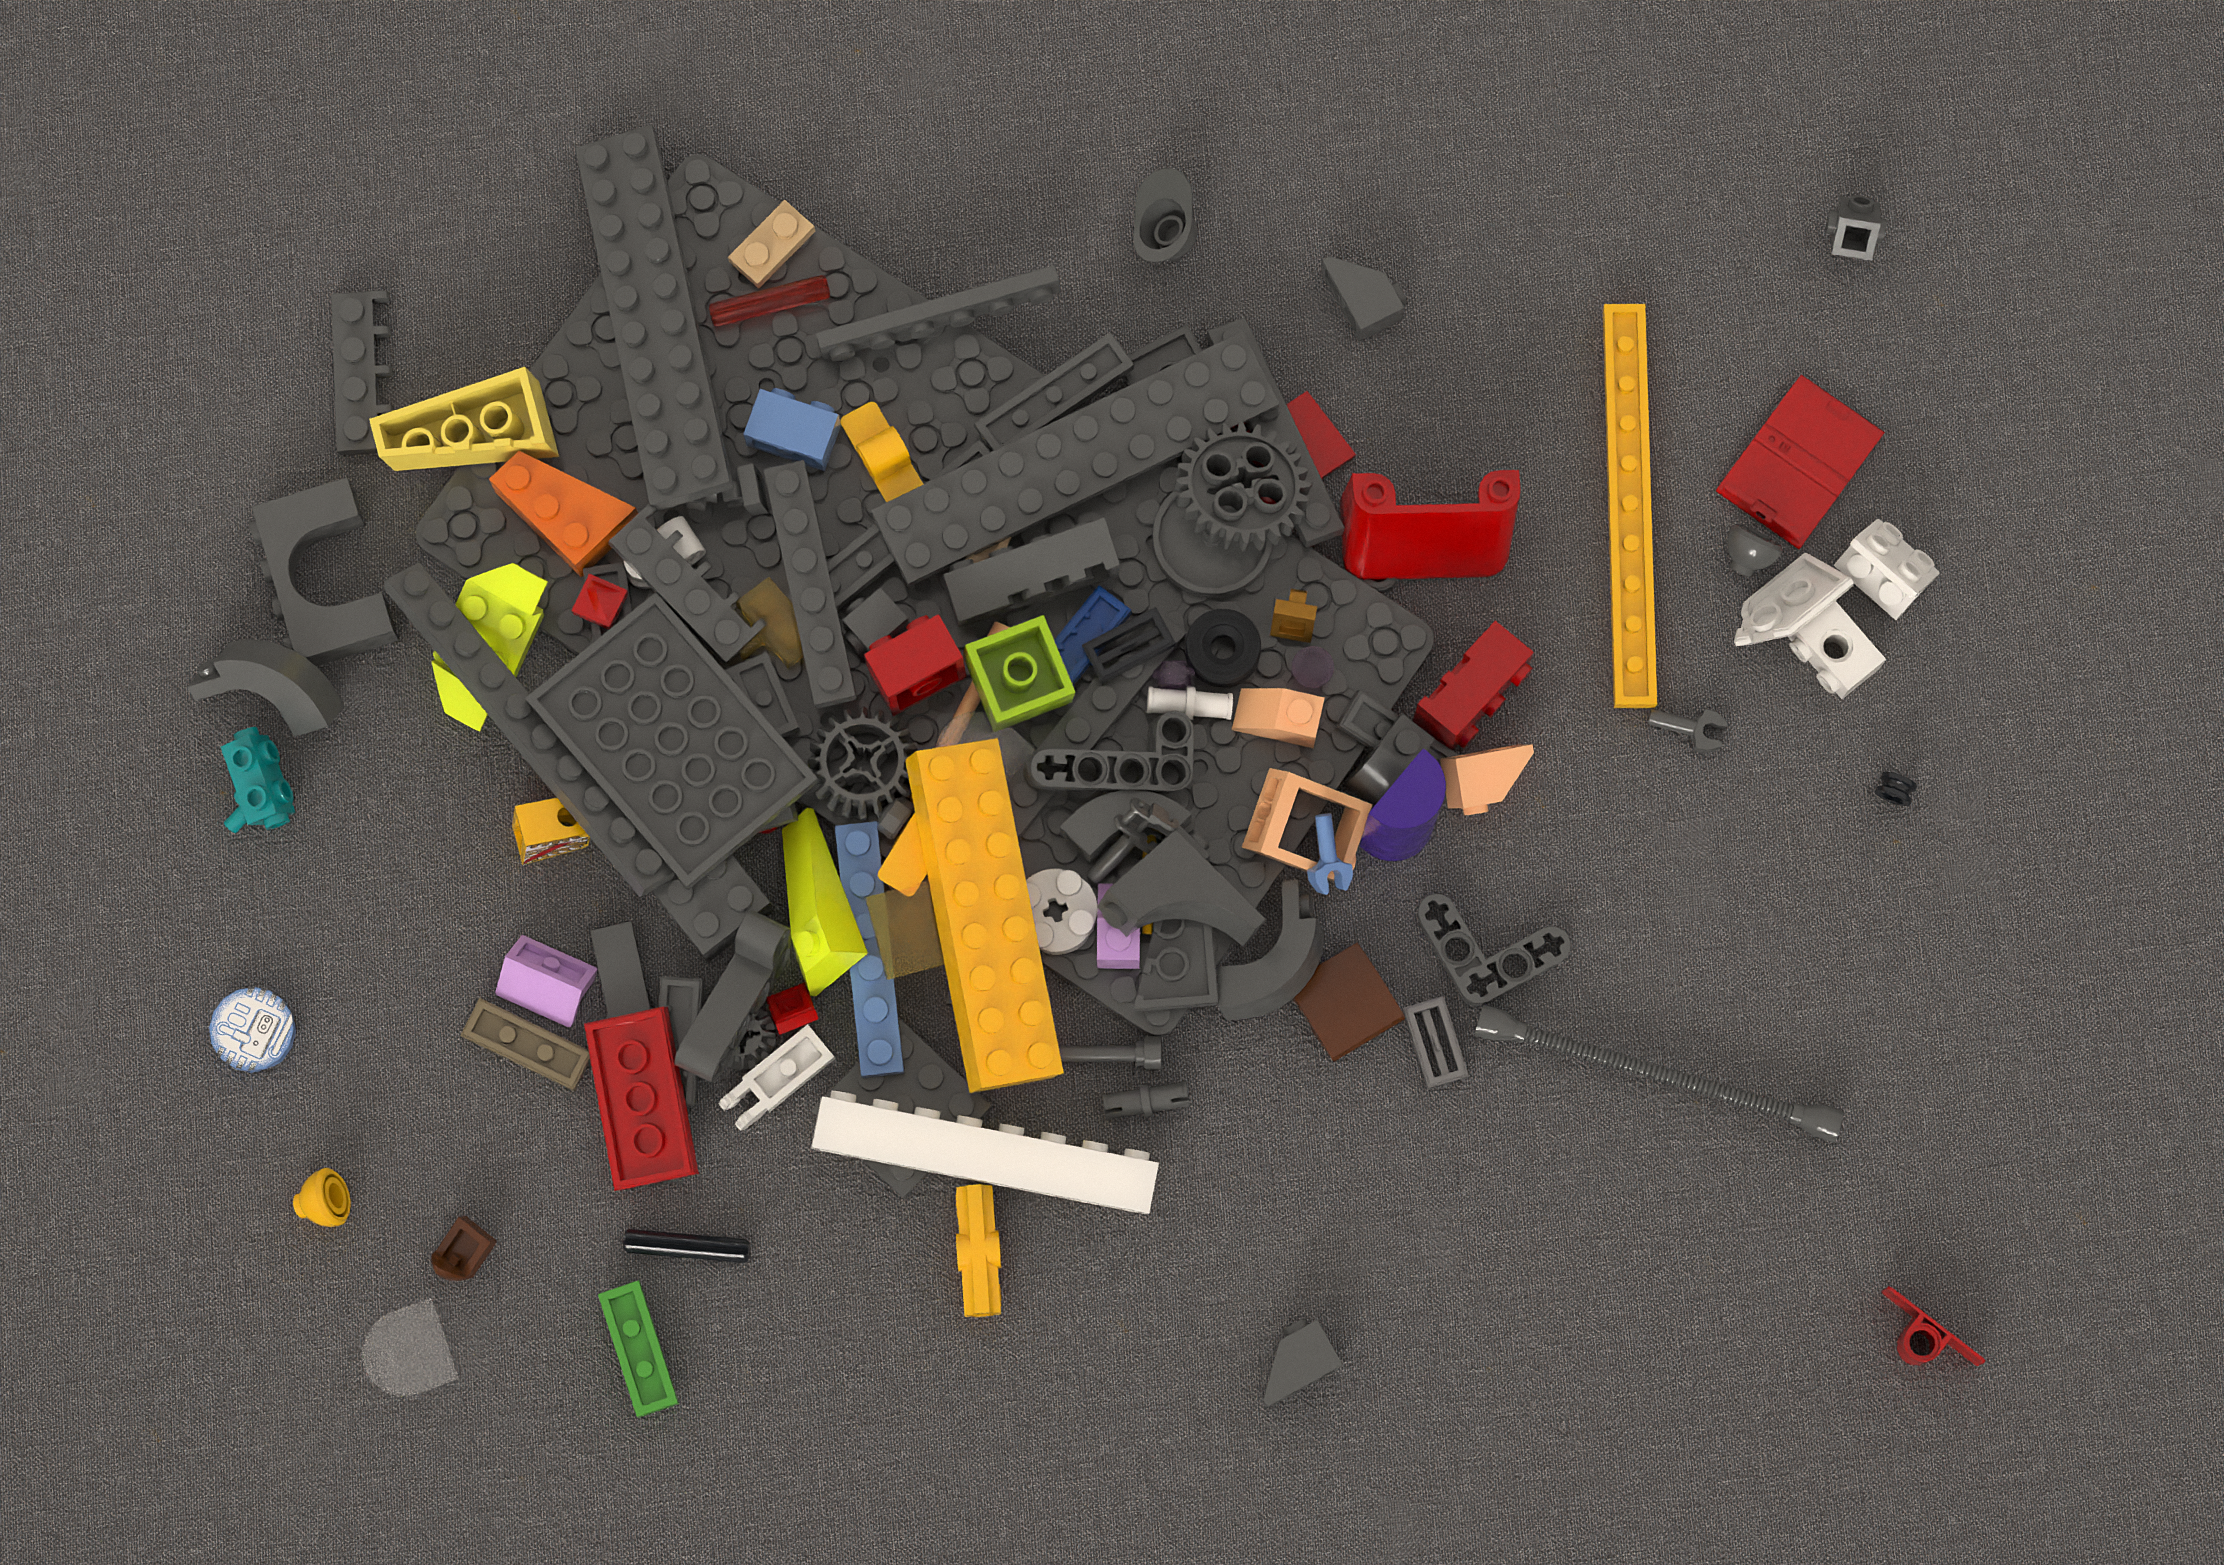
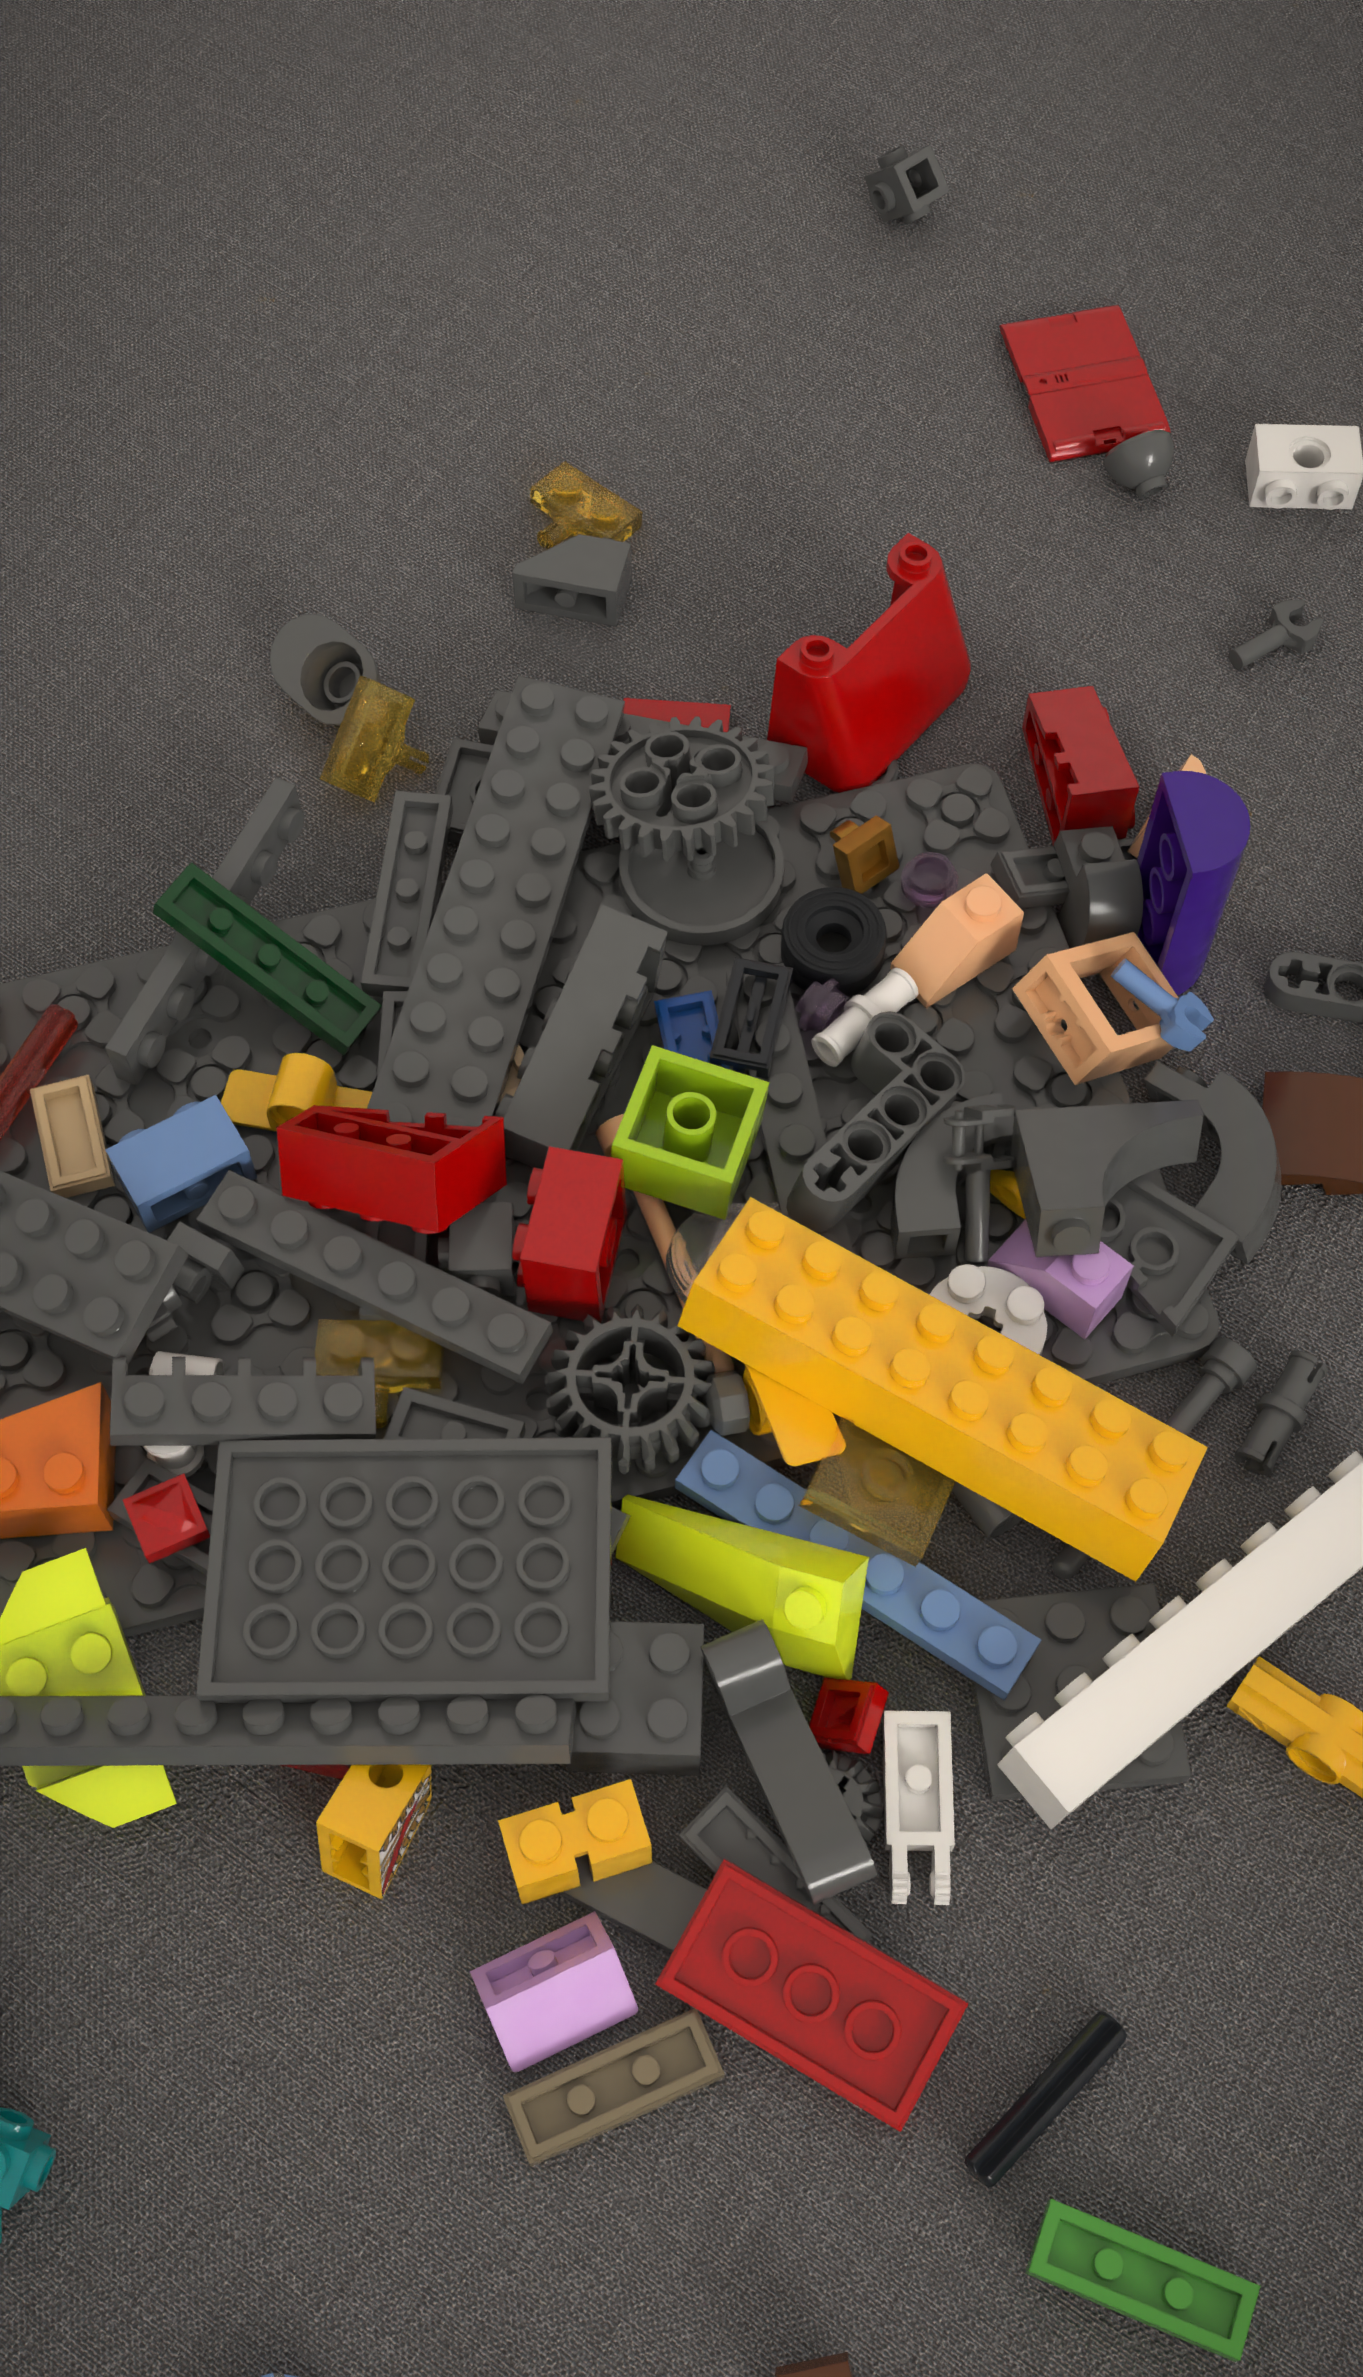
camera: 50 degrees left, 15 degrees down
(628, 937) = (602, 1824): none -> yellow piece
(763, 356) = (72, 1137): none -> tan tile
(866, 545) = (391, 1169): none -> red wedge
(939, 365) = (266, 958): none -> dark green plate
(1139, 285) = (371, 740): none -> clear yellow plate
(1421, 250) = (581, 507): none -> clear yellow plate
(1629, 506) = (1011, 529): yellow plate -> none
(1790, 600) = (1227, 461): white tile -> none
(1887, 567) = (1260, 381): white bracket -> none

